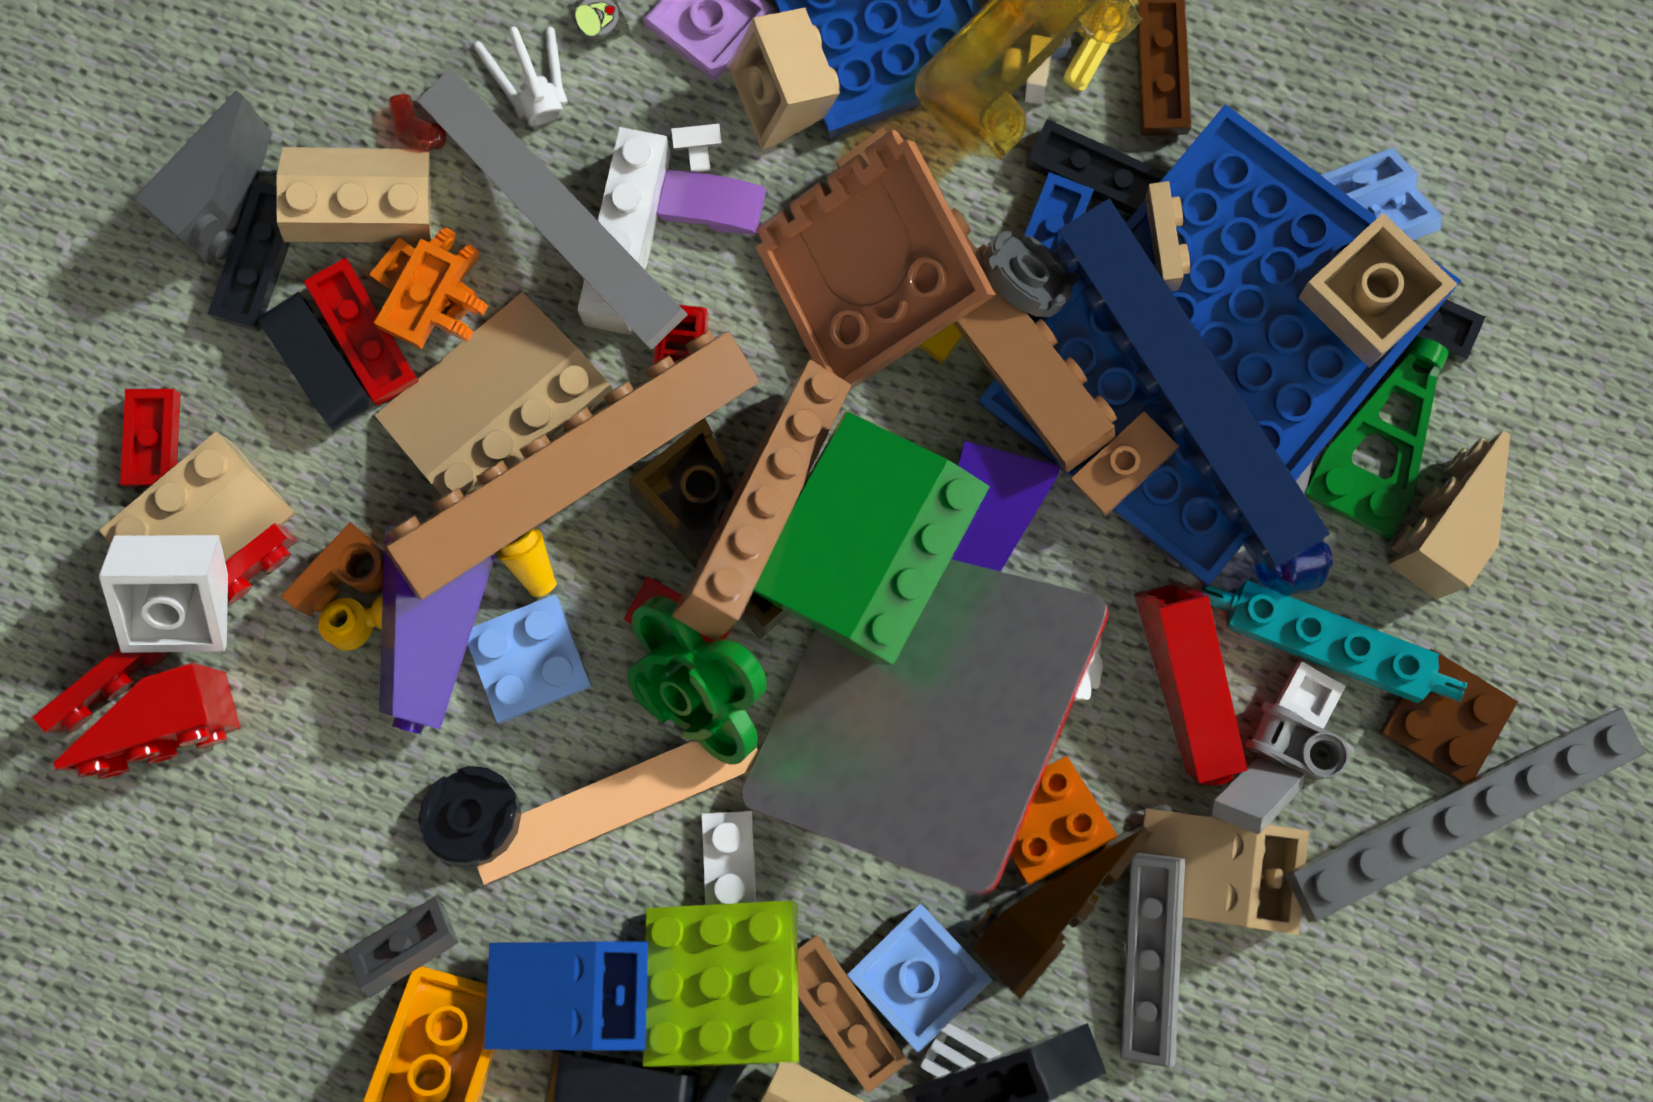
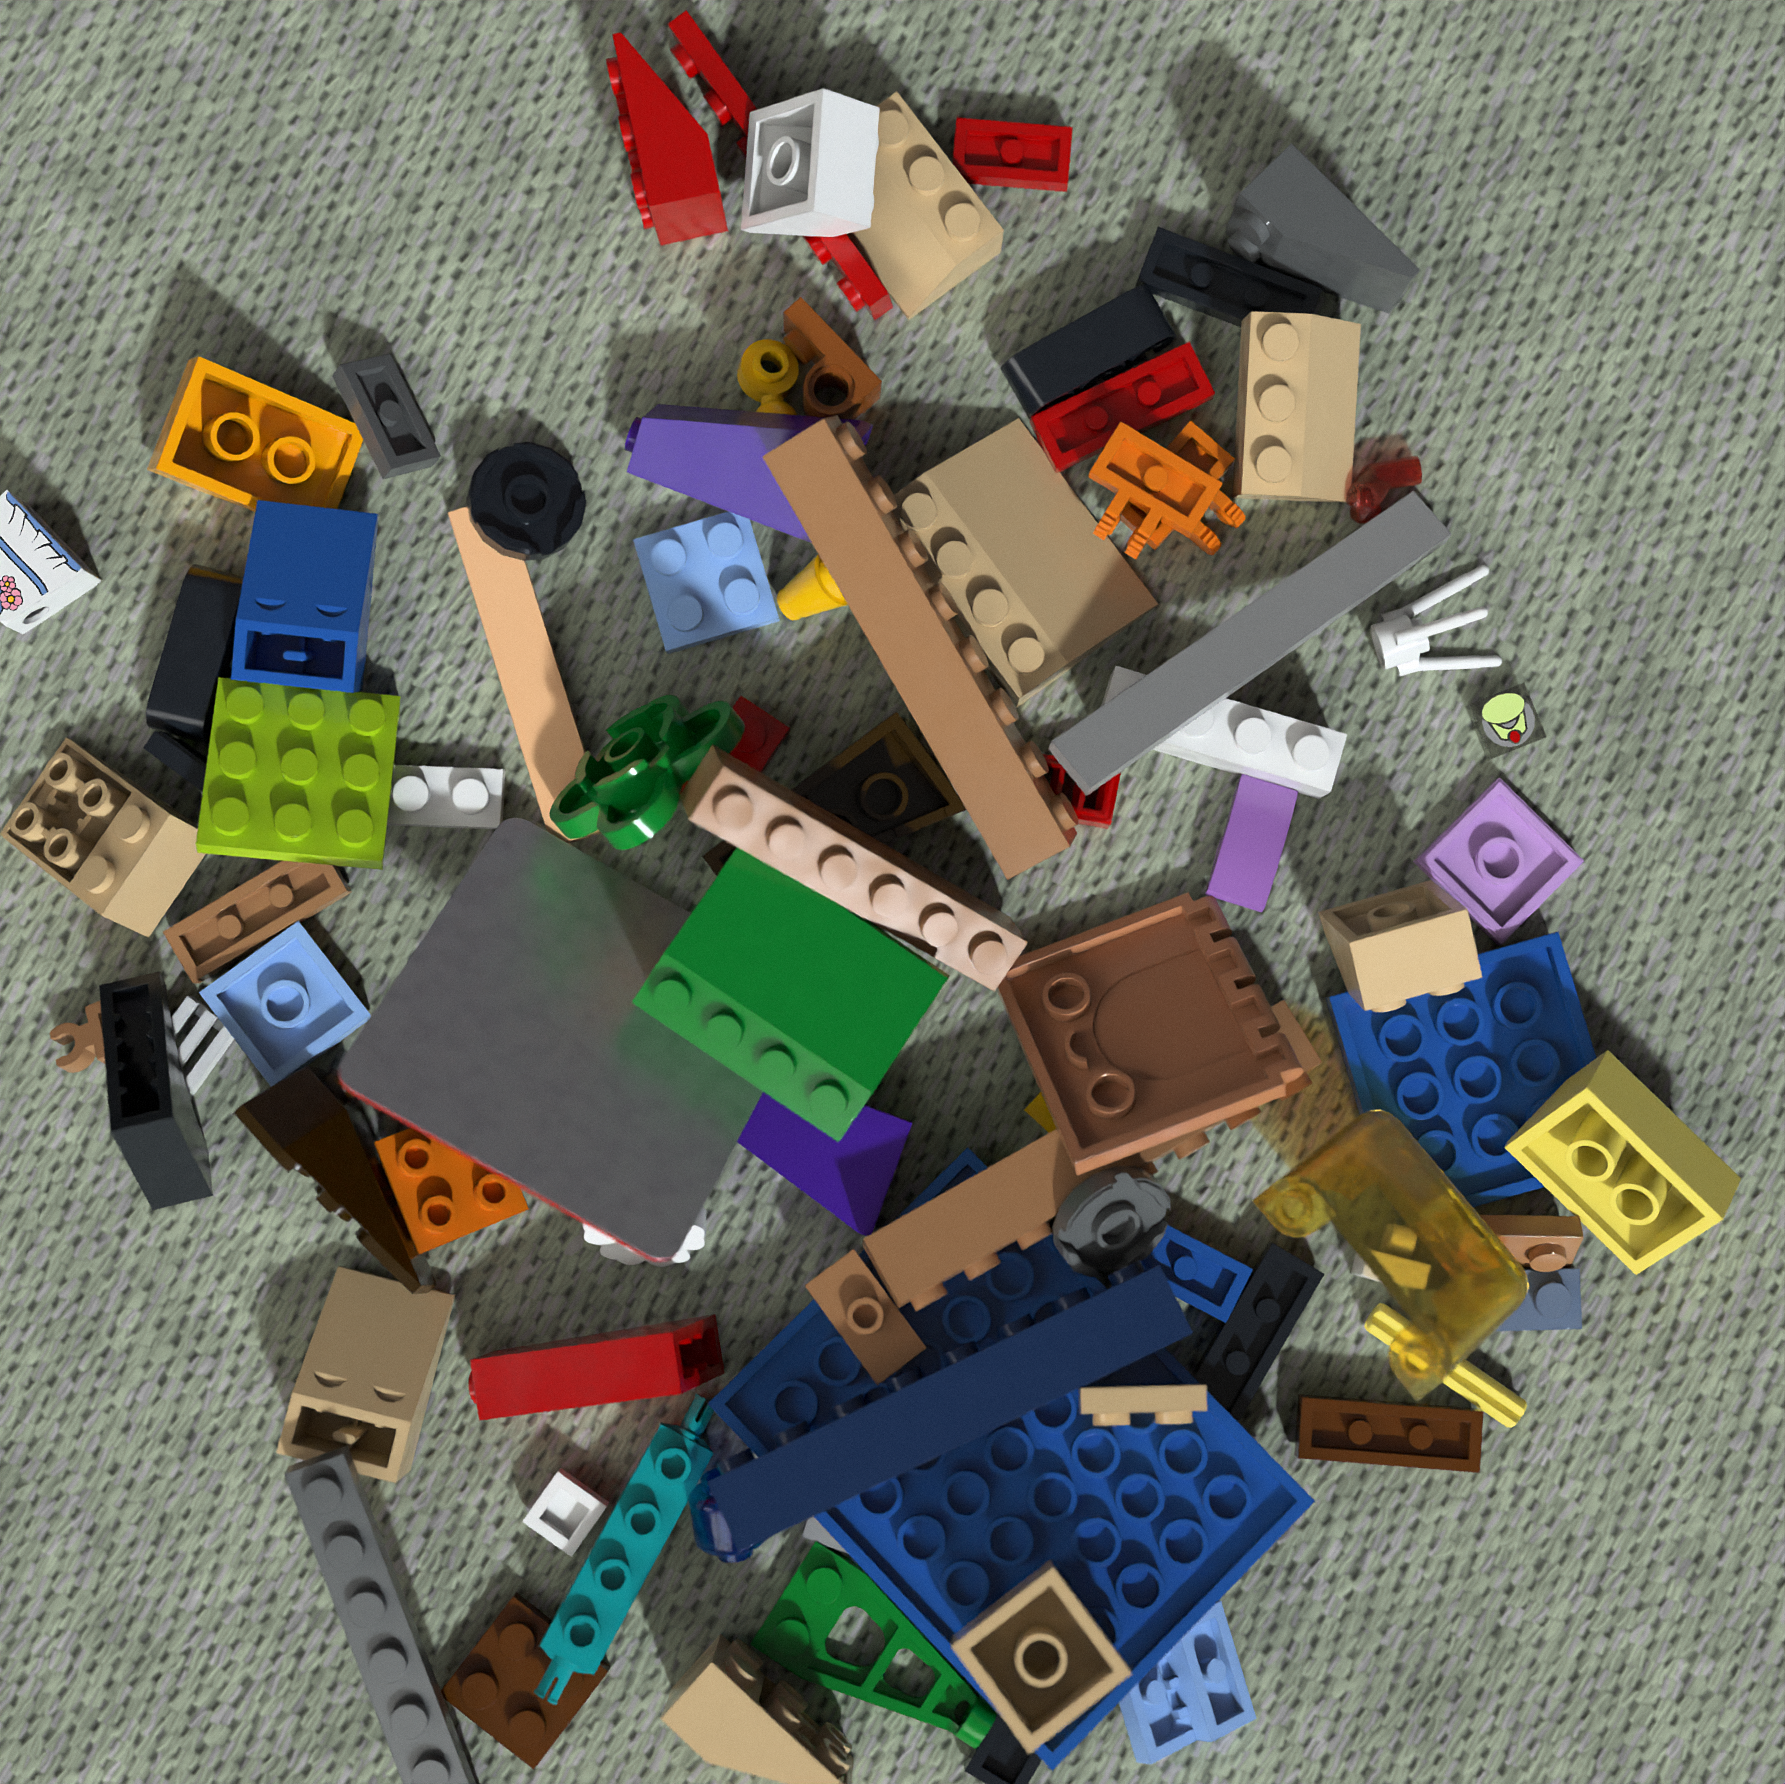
camera: 100 degrees right, 5 degrees up
(697, 140) = (1330, 831): white tile -> none
(1152, 959) = (275, 1280): light grey tile -> none
(1258, 795) = (448, 1429): light grey tile -> none
(1288, 739) = (514, 1479): light grey piece -> none

